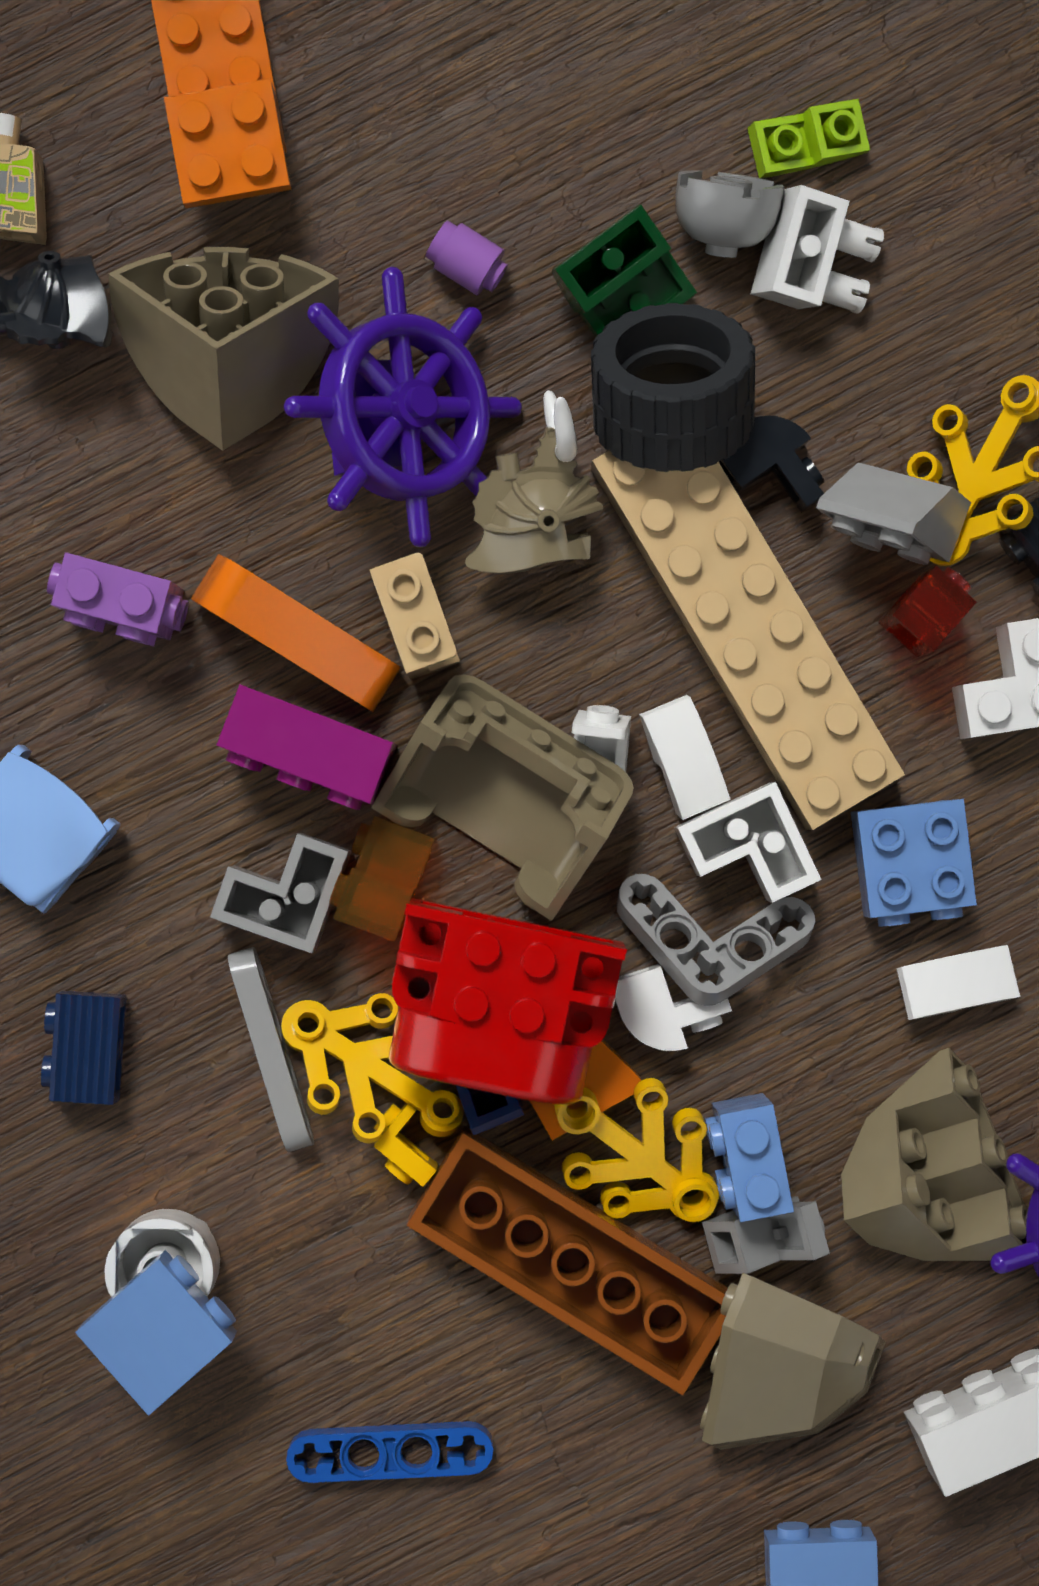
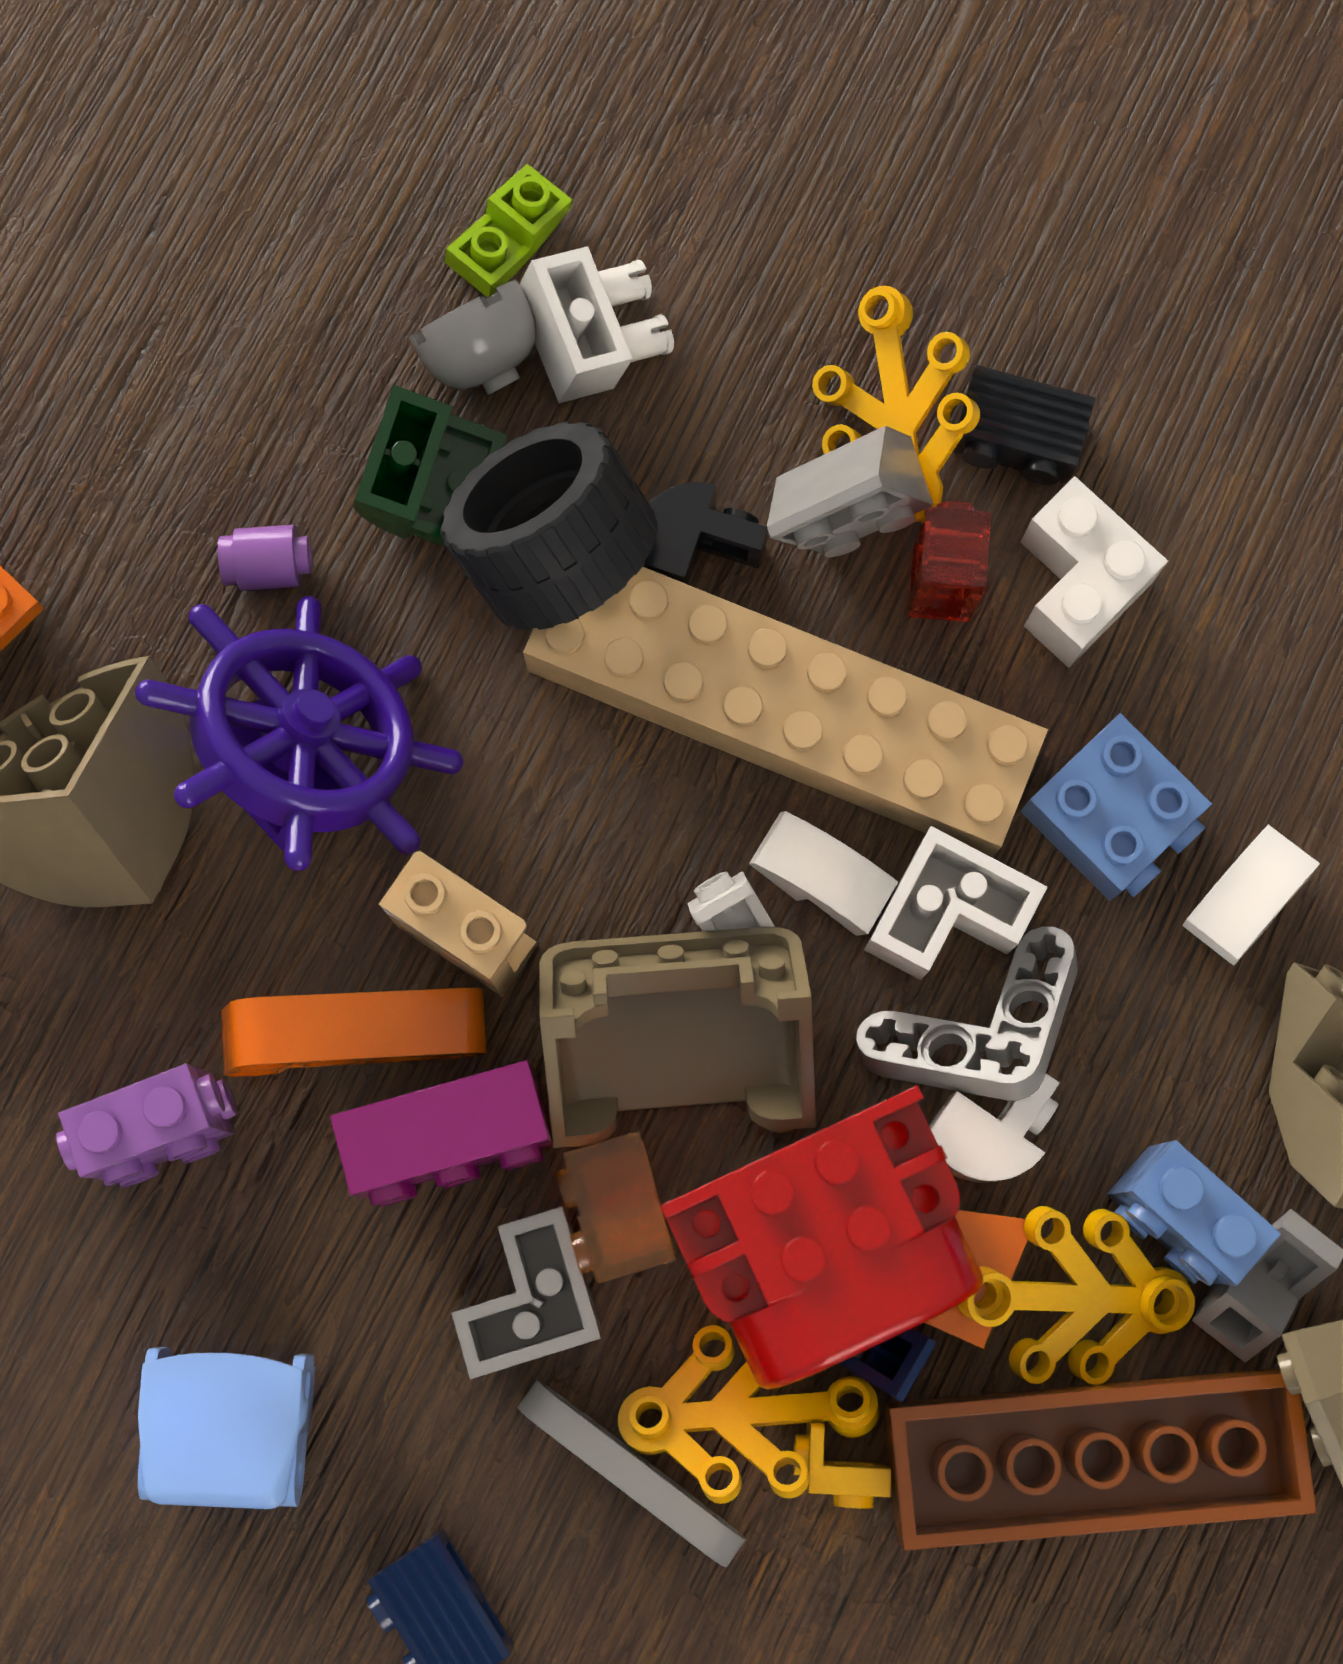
camera: 35 degrees left, 10 degrees down
(528, 506) = (495, 743): dark tan helmet -> none

